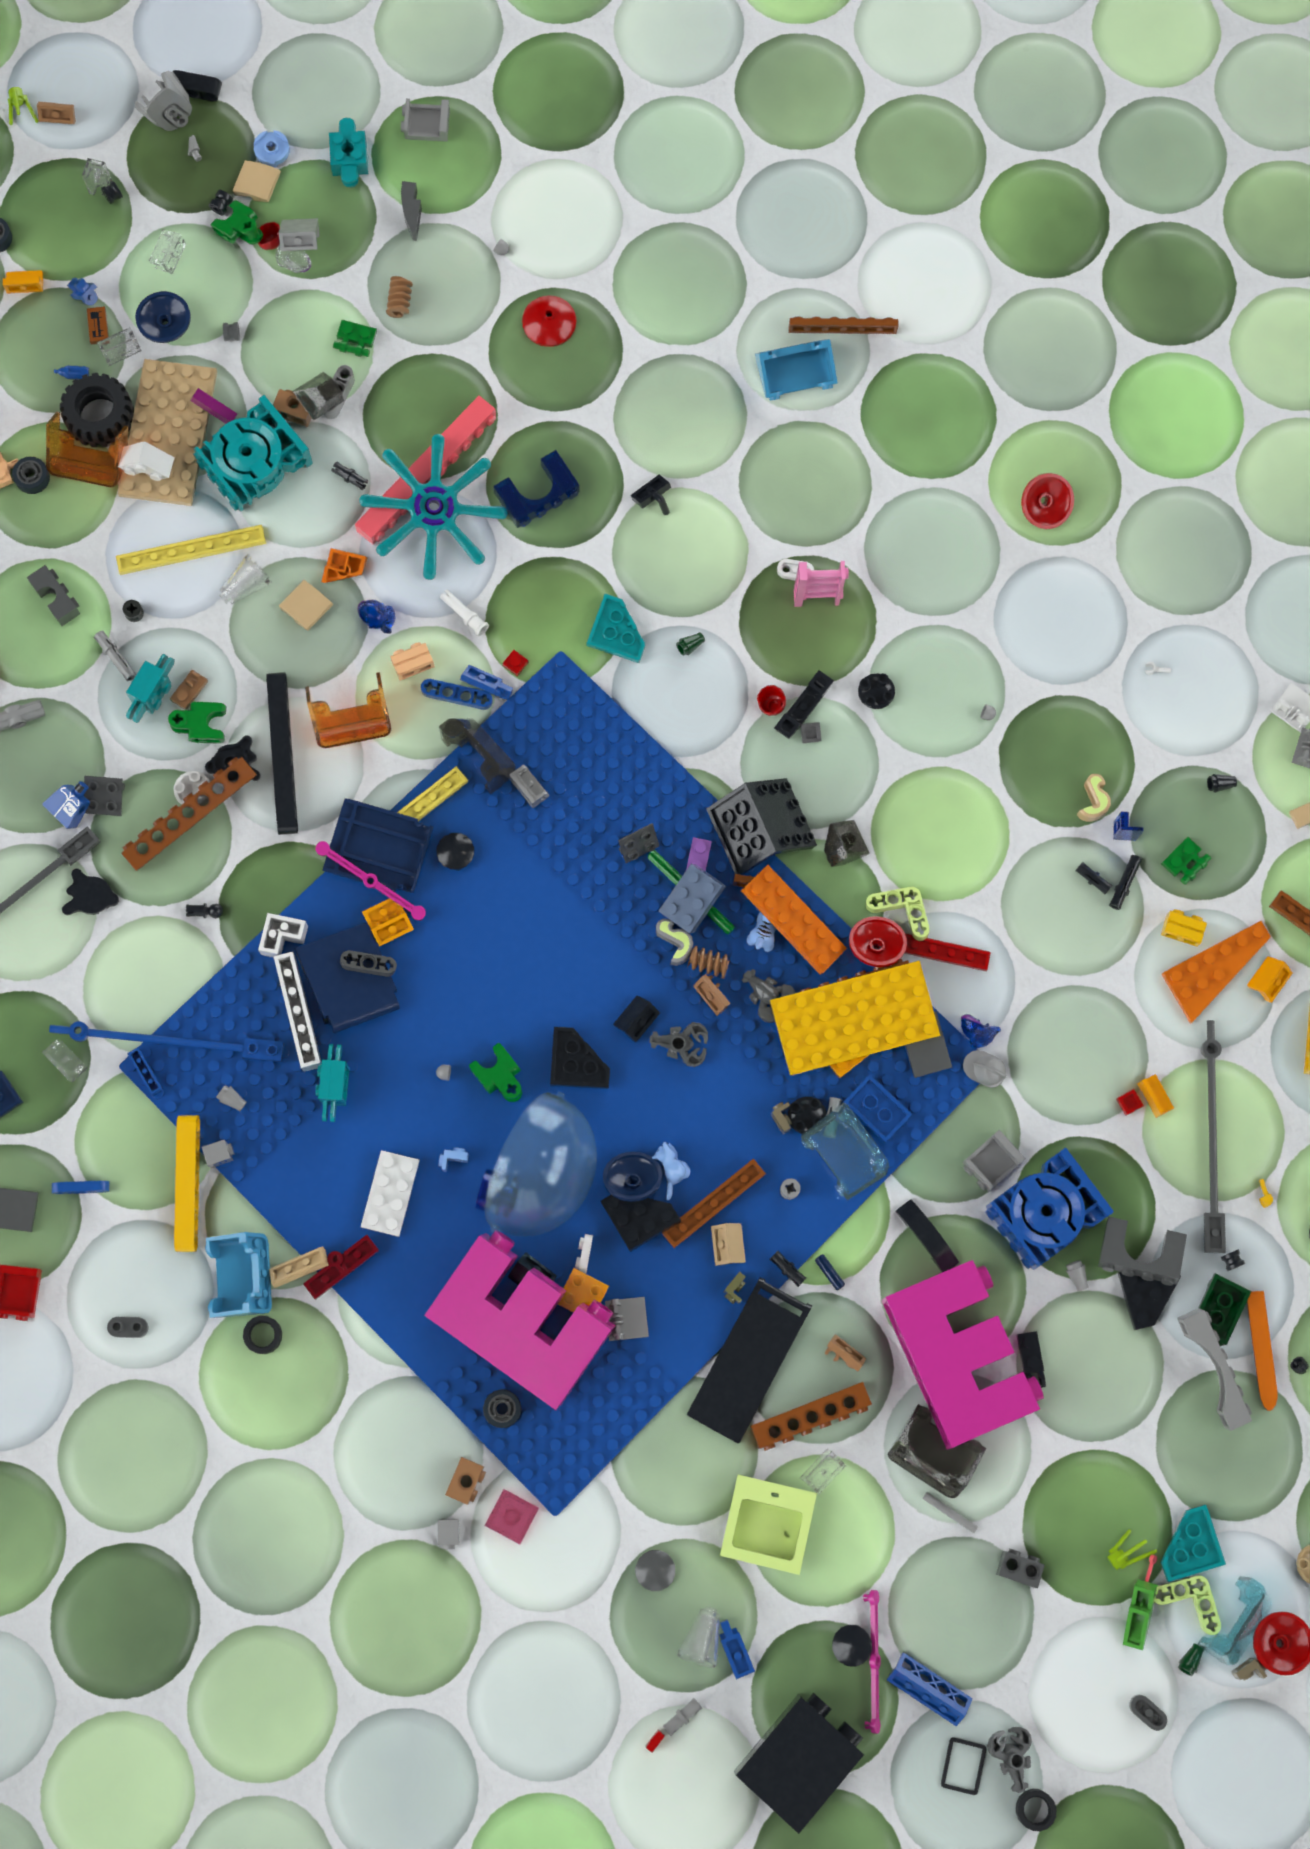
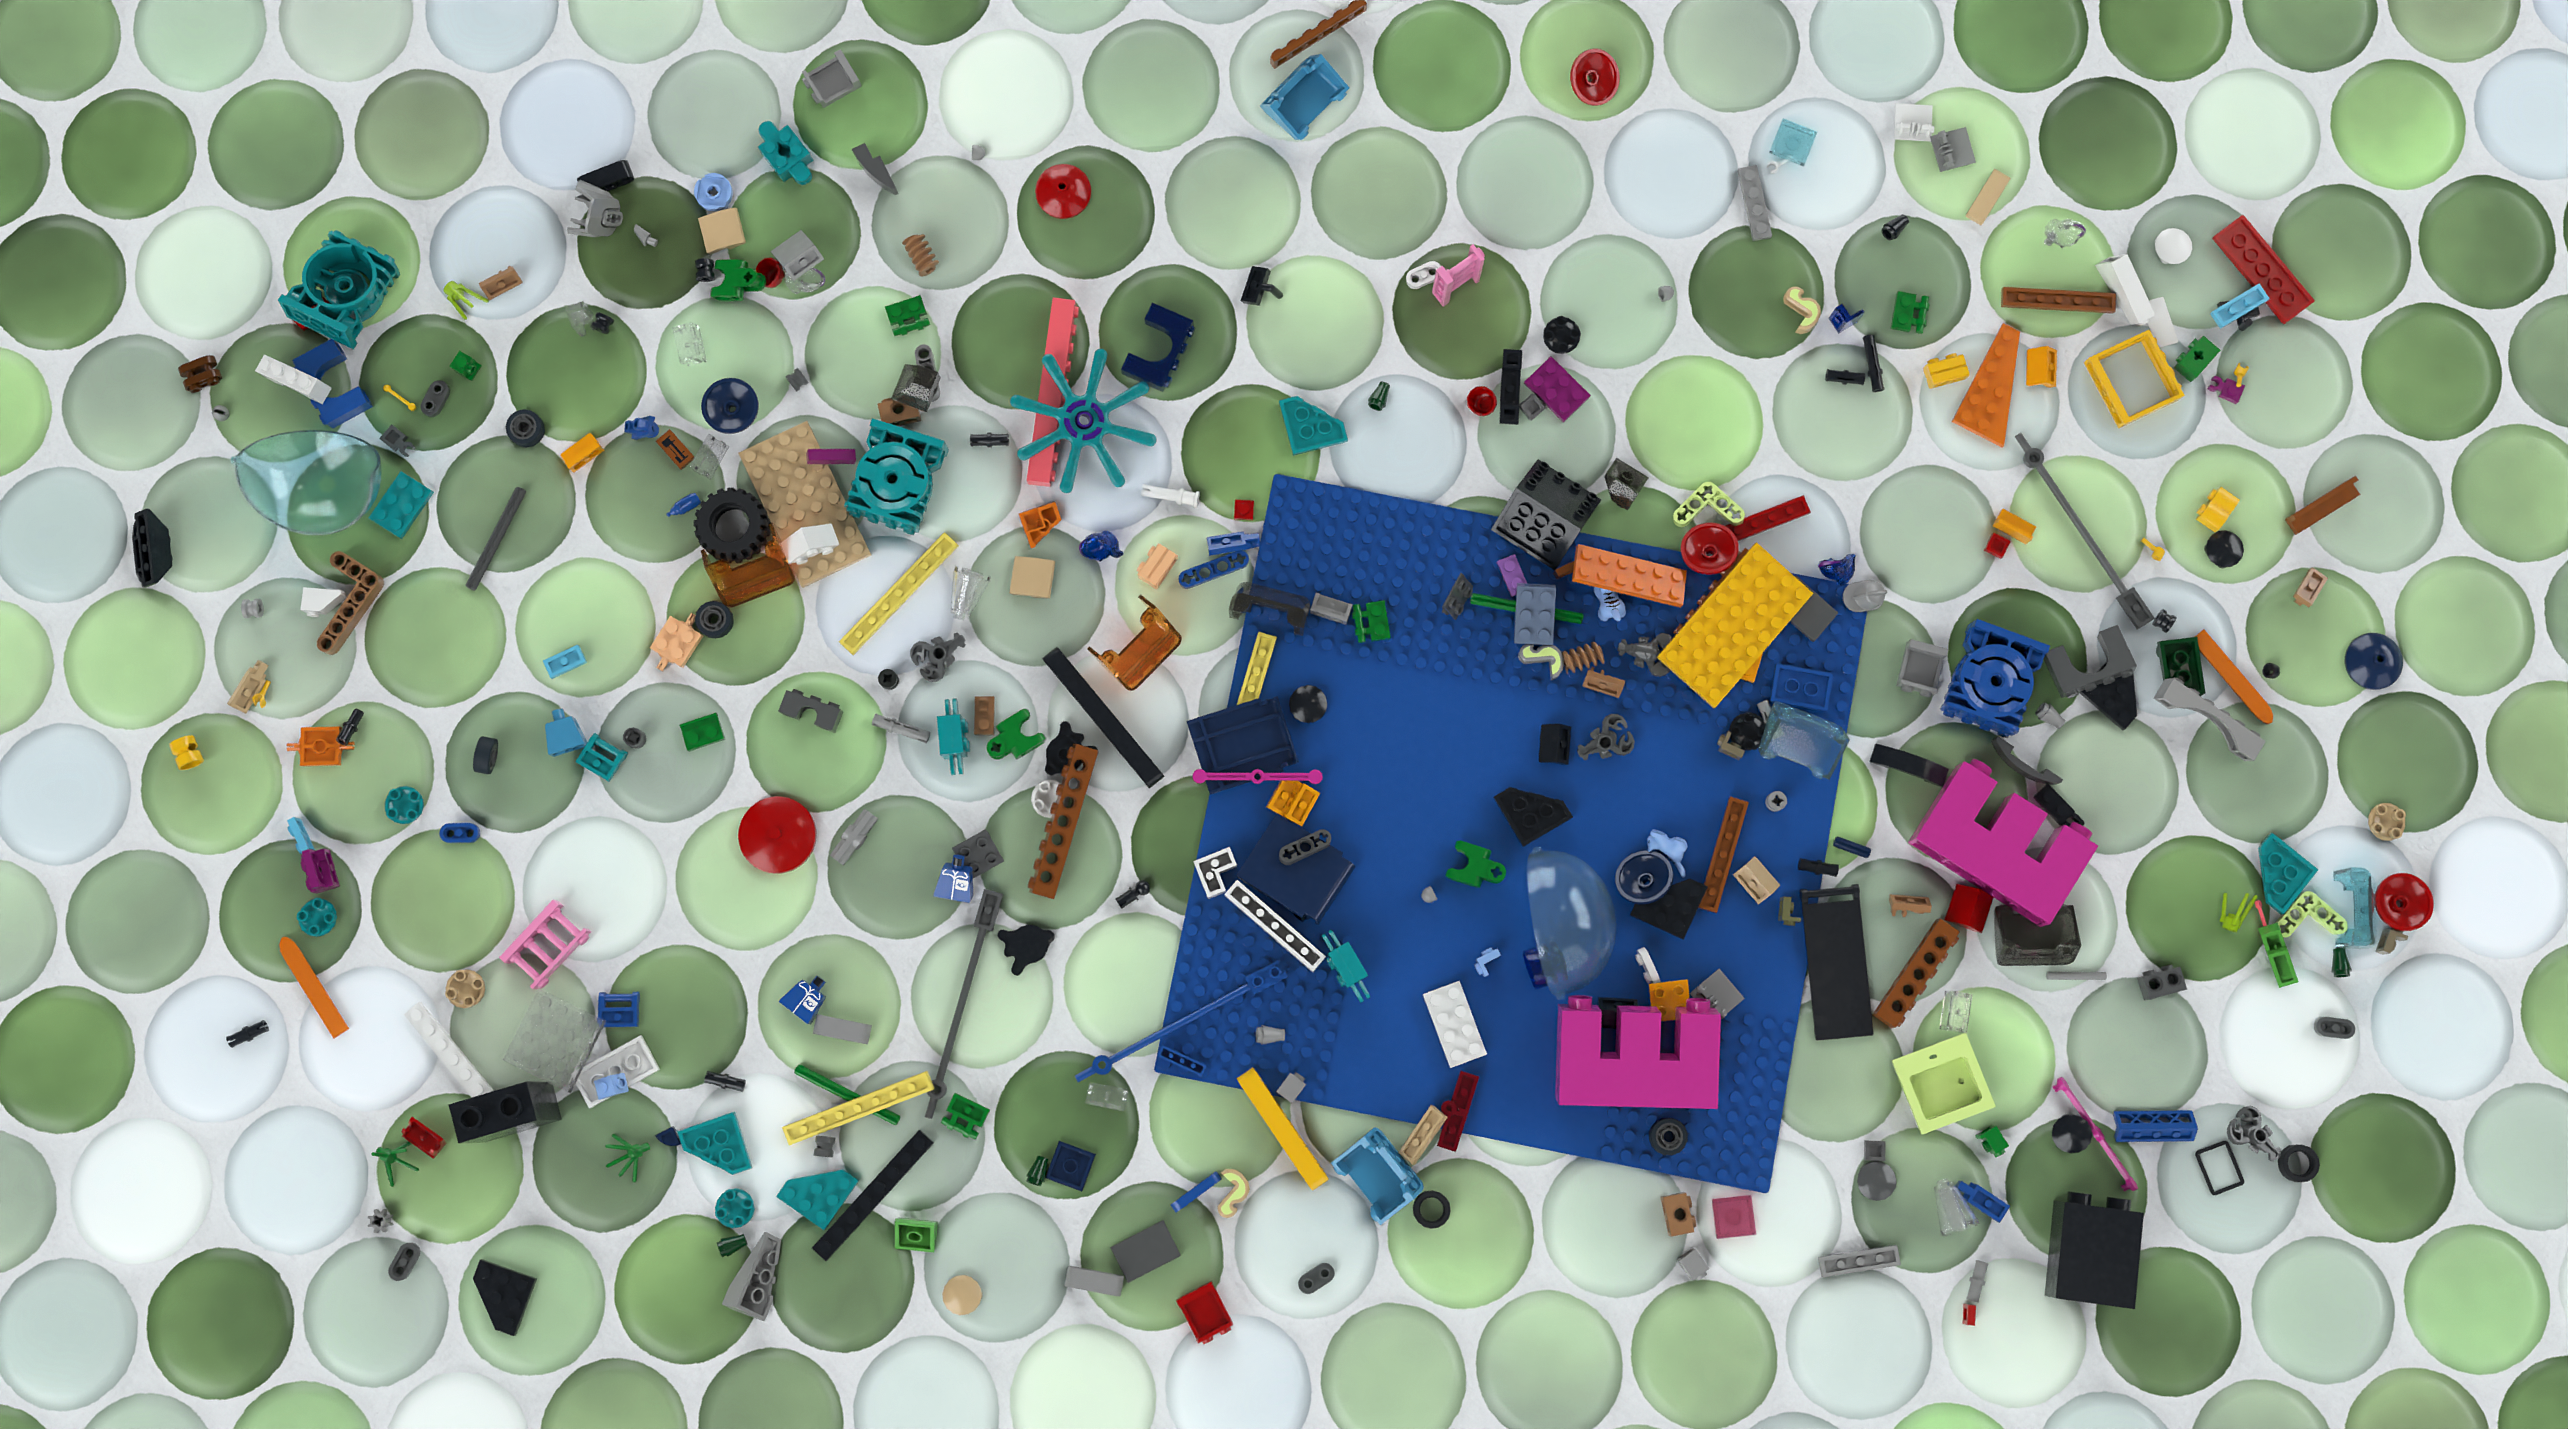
camera: 30 degrees left, 5 degrees up
(111, 1212) = (1236, 1195): none -> animal
(186, 616) = (937, 655): none -> dark grey animal
(560, 821) = (1377, 621): none -> green plate
(592, 1628) = (1859, 1261): none -> light grey plate
(671, 1543) = (1874, 1150): none -> flat silver tile
(779, 1605) = (1993, 1141): none -> green brick
(842, 732) = (1557, 389): none -> magenta plate
(896, 1391) = (1969, 908): none -> red slope
(1018, 1276) = (2004, 751): none -> dark grey slope
(1114, 688) = (1754, 203): none -> light grey plate
(1181, 659) = (1793, 142): none -> clear light blue tile

